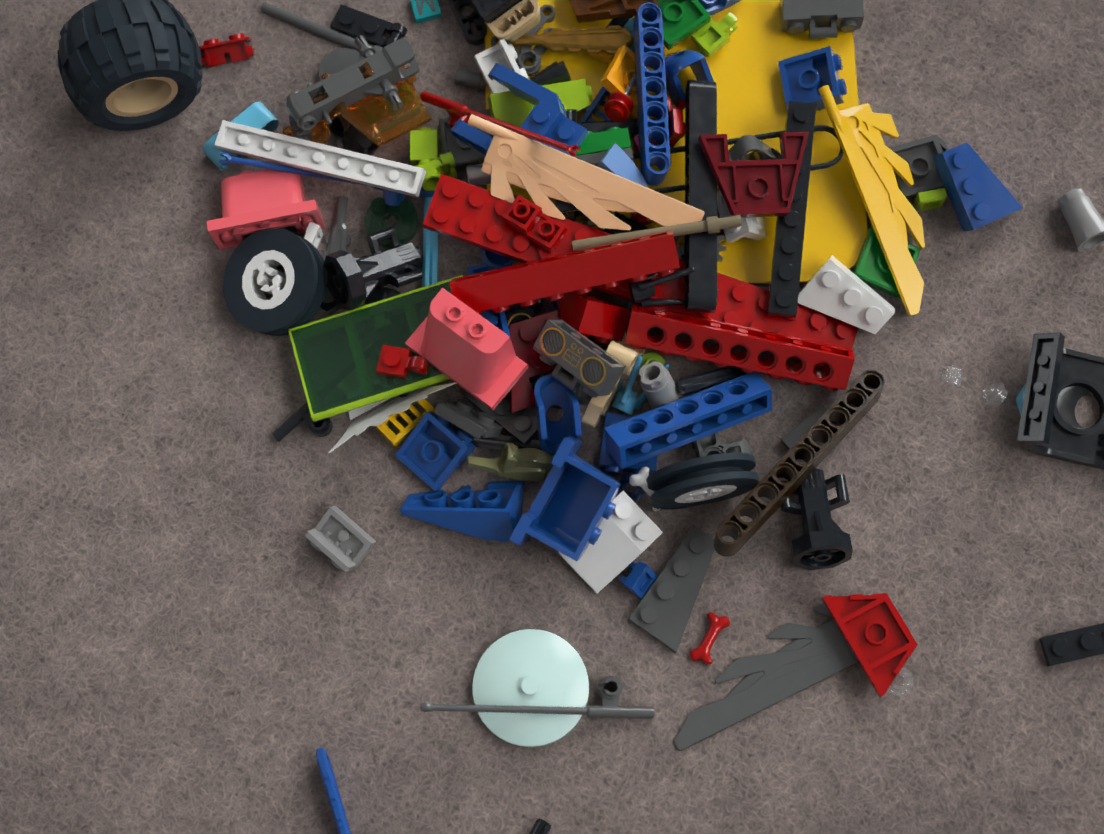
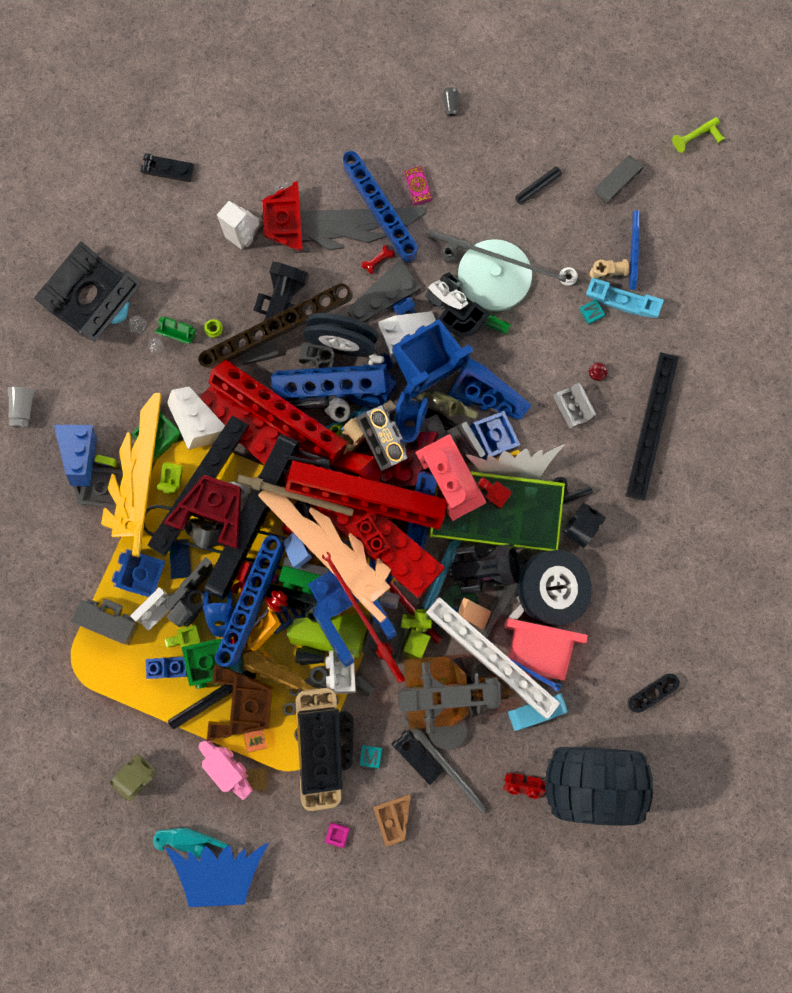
camera: 160 degrees left, 5 degrees up
(101, 208) = (644, 705): none -> black beam
(222, 562) = (651, 426): none -> black plate
(265, 378) = (584, 525): none -> black brick
(326, 606) = (598, 371): none -> dark red plate
(327, 730) = (623, 300): none -> medium azure slope
(364, 767) = (609, 269): none -> tan connector
(367, 210) = (474, 613): none -> light nougat tile
(367, 693) = (592, 312): none -> teal tile
(413, 732) = (570, 271): none -> white plate
(494, 613) = (498, 324): none -> green pin
(545, 595) = (464, 321): none -> black brick
(571, 608) = (455, 298): none -> white slope
(592, 623) = (453, 284): none -> black brick
(704, 780) = (418, 185): none -> tile
(729, 61) = (187, 610): none -> dark grey piece
(741, 90) = (191, 583): none -> dark grey wing
(758, 715) = (378, 198): none -> blue beam
(766, 118) = (180, 560): none -> clear blue tile
(769, 49) = (152, 609): none -> white bracket
(834, 208) = (170, 478): none -> lime bracket
(888, 428) = (213, 322): none -> lime plate
(928, 587) = (238, 224): none -> white wedge
(936, 406) = (184, 332): none -> green hinge

